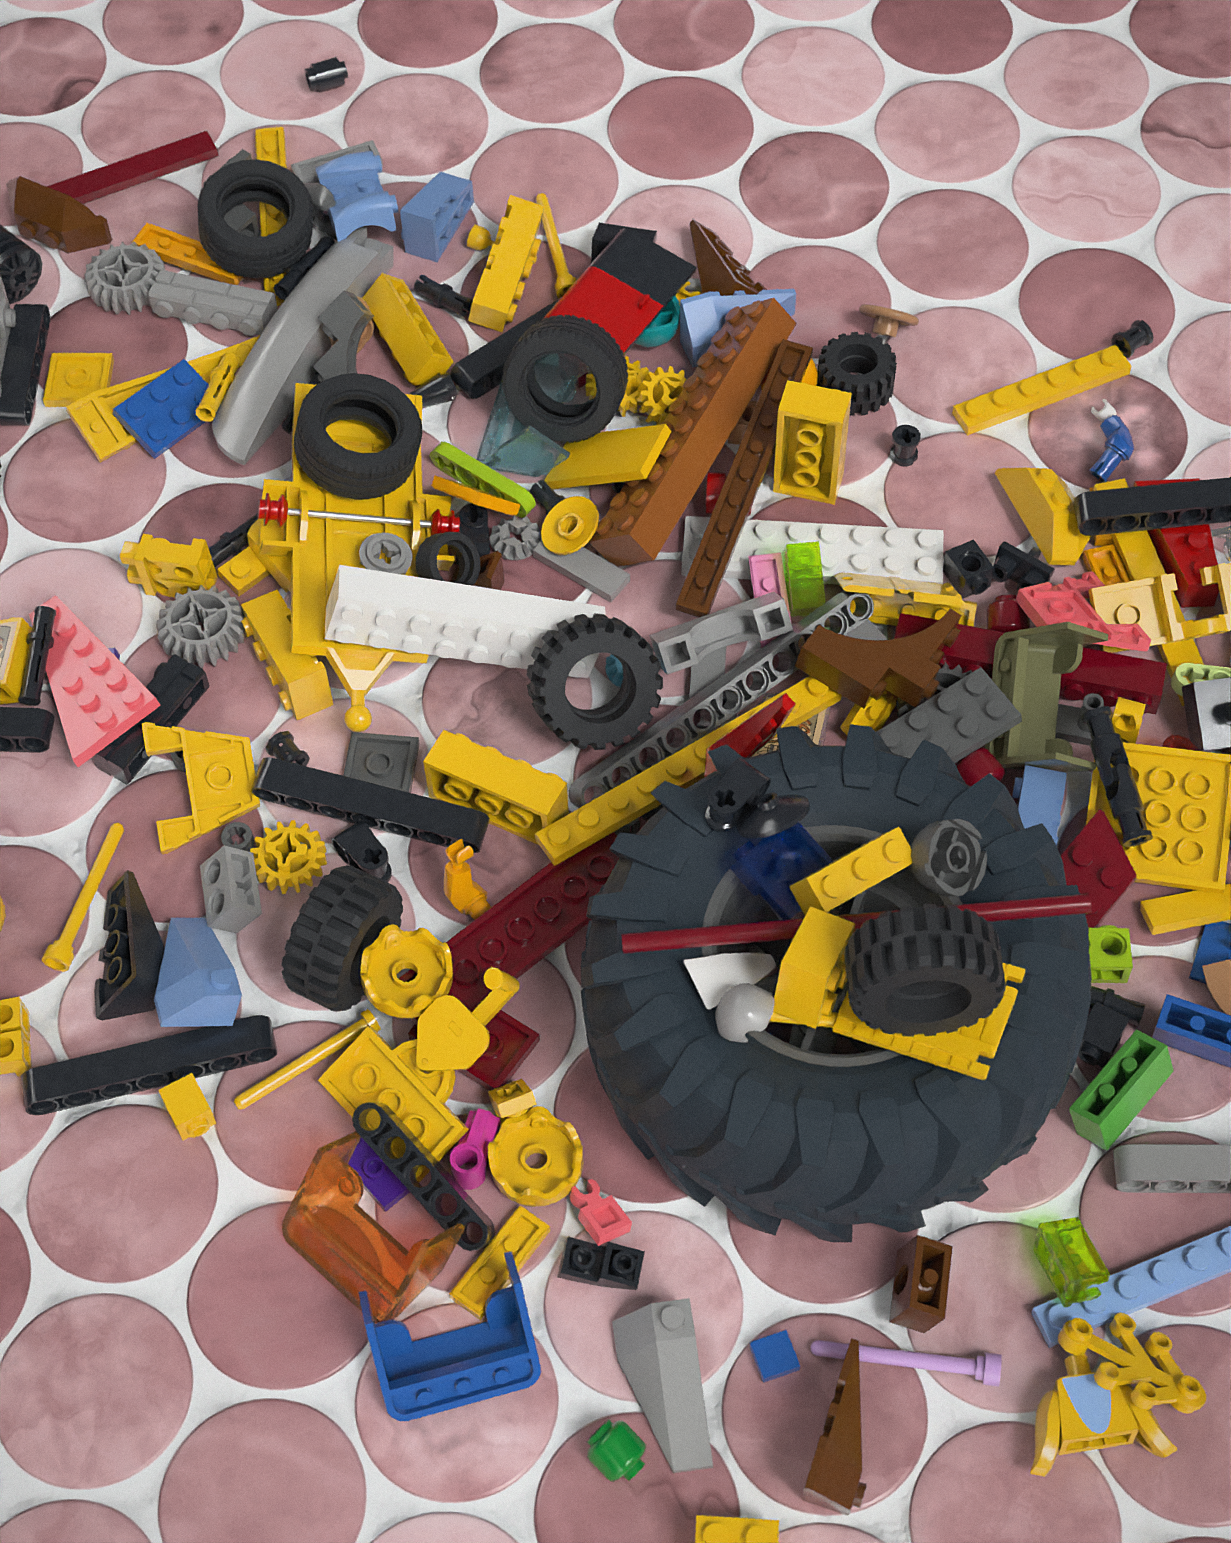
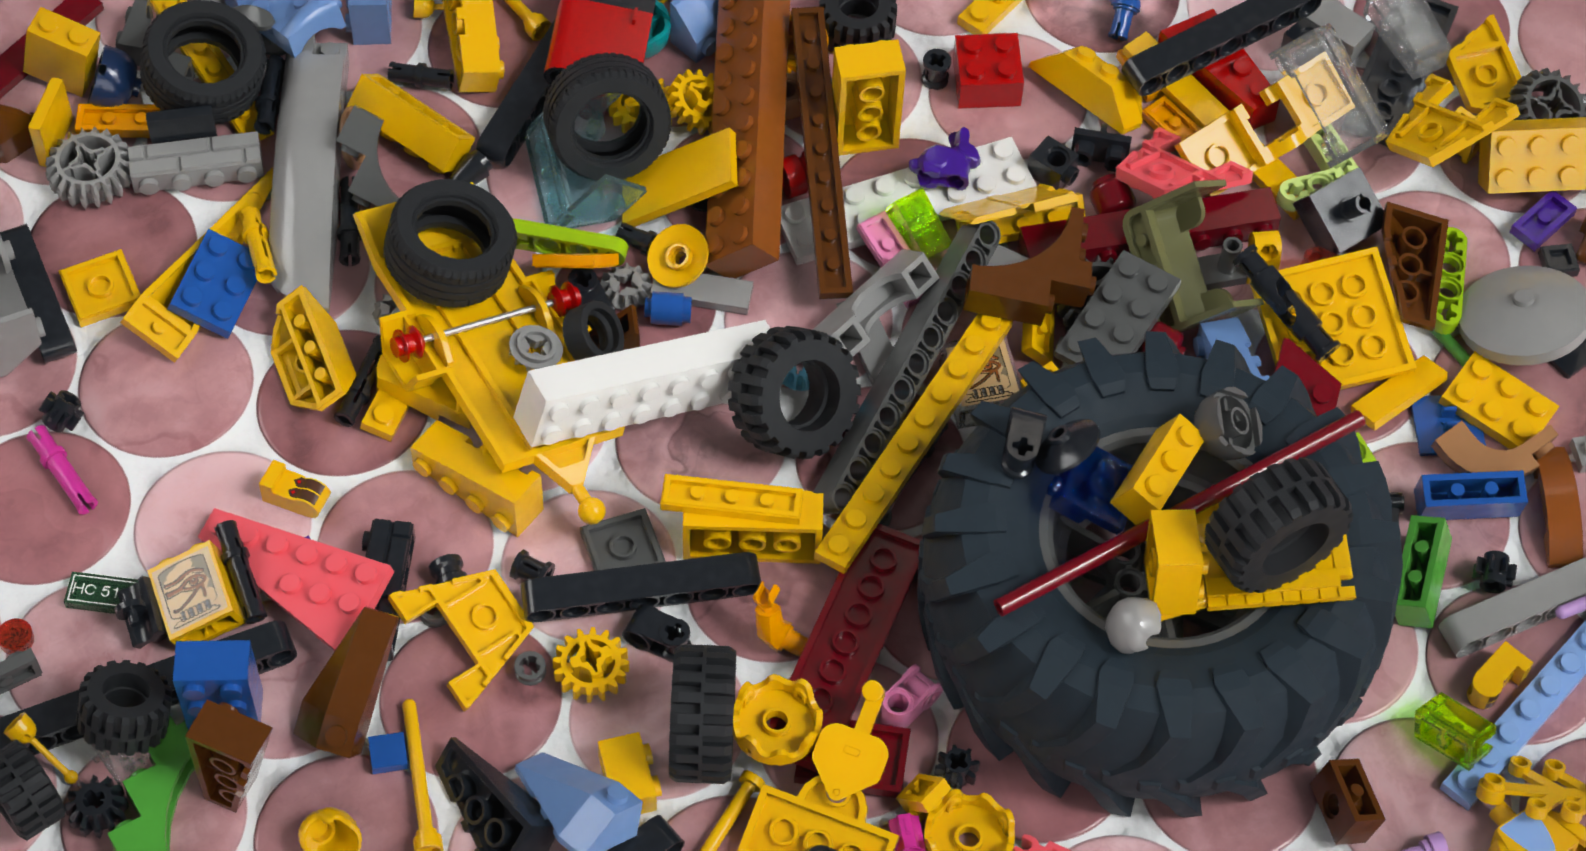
camera: 30 degrees left, 0 degrees up
(61, 793) = (344, 695): none -> reddish brown wedge
(74, 863) = (388, 753): none -> blue tile
(111, 223) = (50, 119): none -> yellow tile
(127, 604) = (293, 490): none -> yellow leg
(149, 172) = (61, 50): none -> yellow brick
(168, 566) = (318, 438): yellow hips -> none
(180, 213) = (114, 79): none -> dark blue cylinder
(210, 264) = (181, 124): none -> black tile
(211, 491) = (310, 352): none -> yellow wedge
(215, 721) = (447, 568): none -> black wheel
(220, 617) = (379, 470): light grey gear -> none
(230, 889) = (558, 715): light grey brick -> none
(261, 968) = (628, 762): none -> yellow brick
(479, 754) = (731, 499): none -> yellow tile
(539, 569) = (668, 308): none -> blue brick
(554, 1094) = (957, 767): none -> black gear
(559, 1000) = (911, 694): none -> bright pink piece
(720, 972) = (1095, 598): white sticker -> none
(753, 732) = (959, 397): red wedge -> none
(862, 532) = (947, 165): none -> dark purple animal
(952, 462) = (988, 70): none -> red brick
(1148, 1223) = (1497, 671): none -> yellow leg
(1200, 1121) = (1494, 571): none -> black gear

